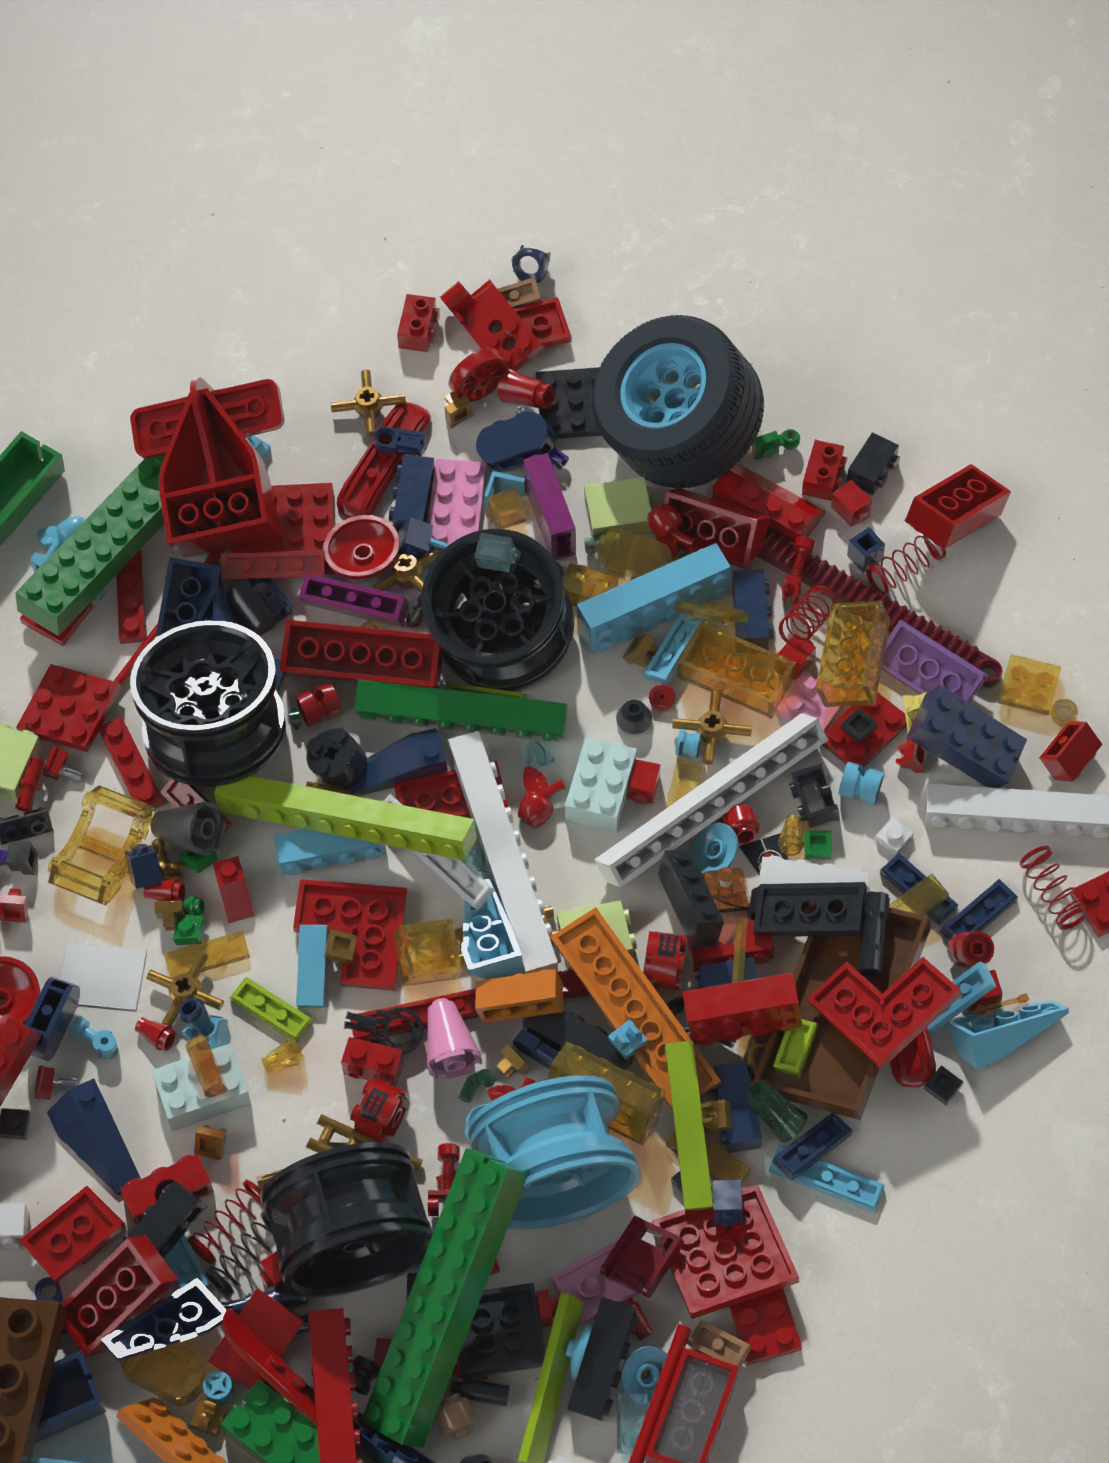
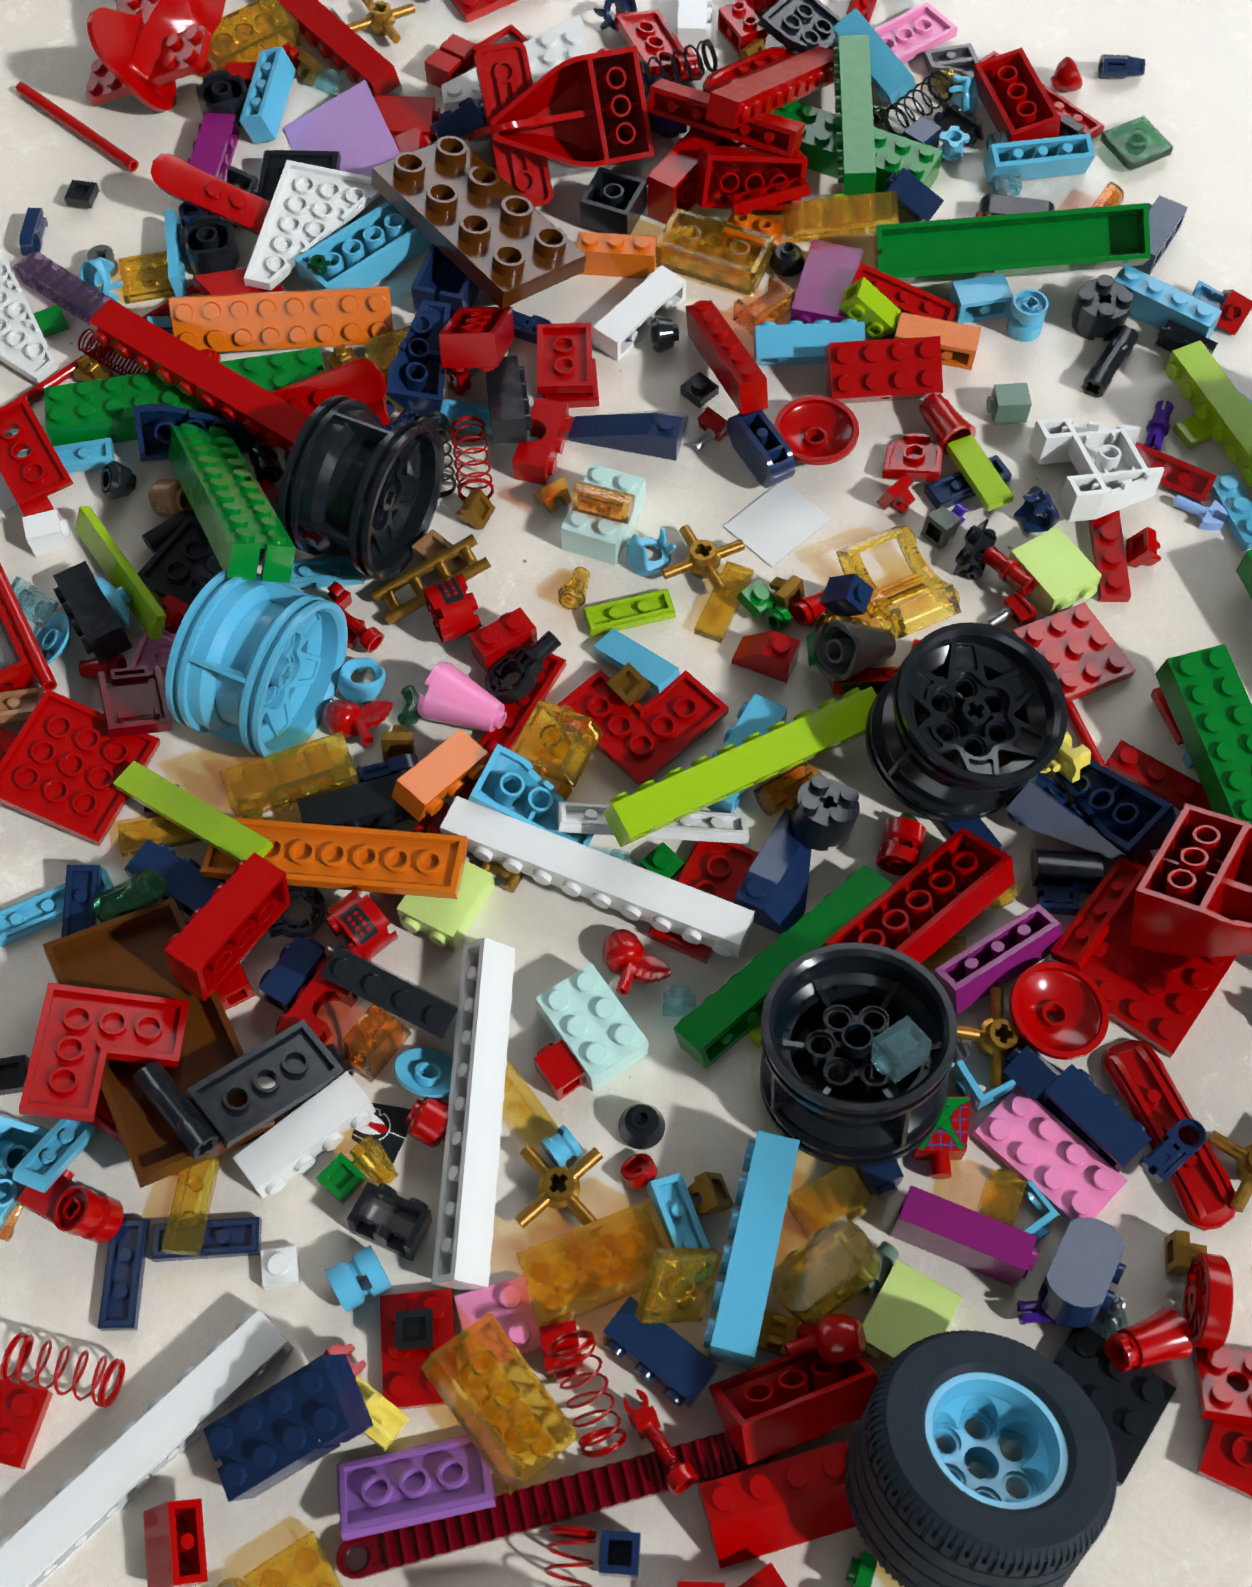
camera: 130 degrees right, 0 degrees up
(103, 1041) = (709, 477): medium azure leg -> none
(156, 1033) = (678, 516): red cone -> none
(195, 1015) = (663, 537): dark blue cone -> none
(627, 1039) = (310, 821): medium azure tile -> none
(716, 1116) = (178, 844): pearl gold tile -> none
(727, 1202) = (99, 792): dark blue brick -> none
(739, 950) = (285, 977): clear yellow tile -> none
(795, 1048) = (154, 955): lime tile -> none

